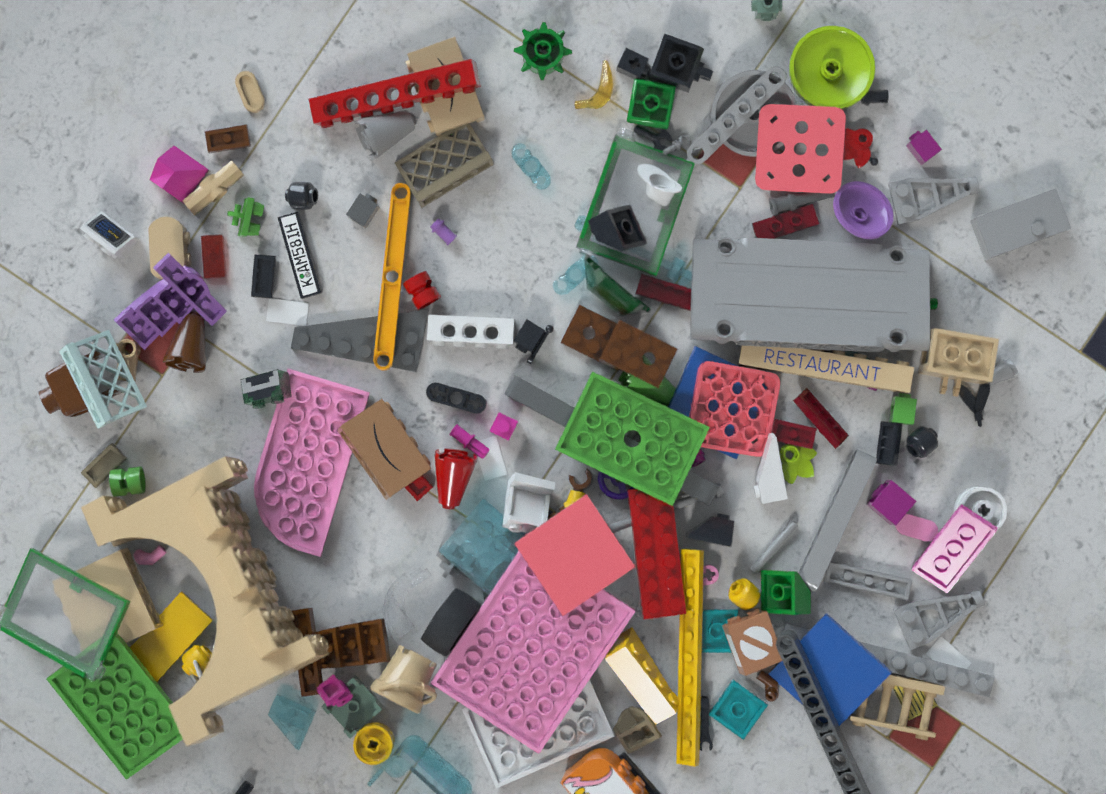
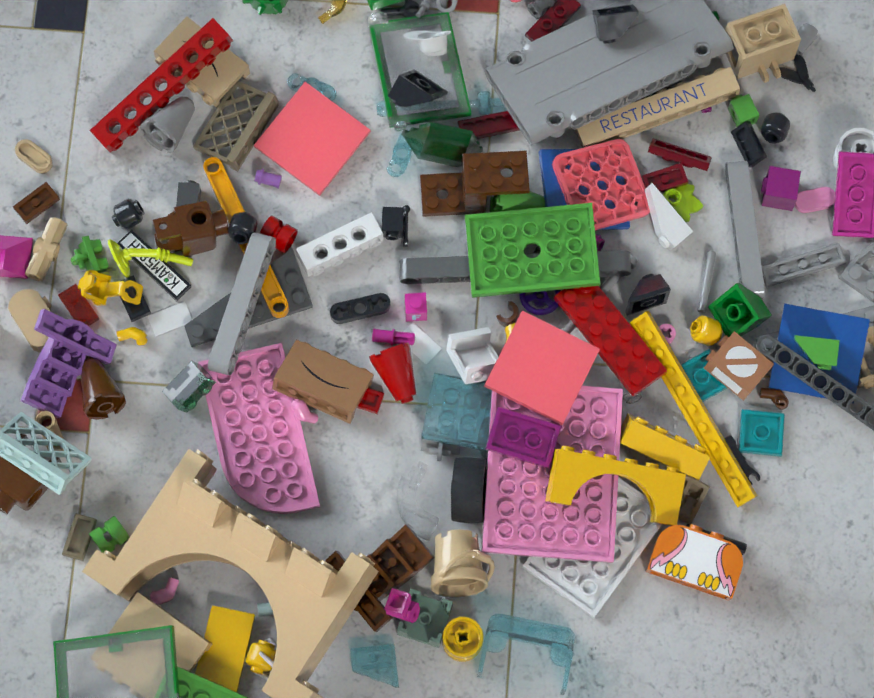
camera: 35 degrees left, 15 degrees down
(242, 254) = (105, 288): none -> yellow piece
(248, 310) = (134, 333): none -> yellow arm
(274, 235) = (123, 256): none -> neon yellow dish
(336, 243) = (191, 229): none -> reddish brown piece
(351, 340) = (241, 303): none -> light grey beam
(351, 466) = (302, 411): none -> bright pink arm
(390, 270) = (242, 227): none -> black head
(503, 216) = (312, 138): none -> coral tile
(520, 608) = (523, 437): none -> magenta plate
(549, 662) = (659, 486): none -> yellow arch
(827, 676) = (819, 350): none -> bright green slope
(835, 264) = (613, 22): none -> black slope

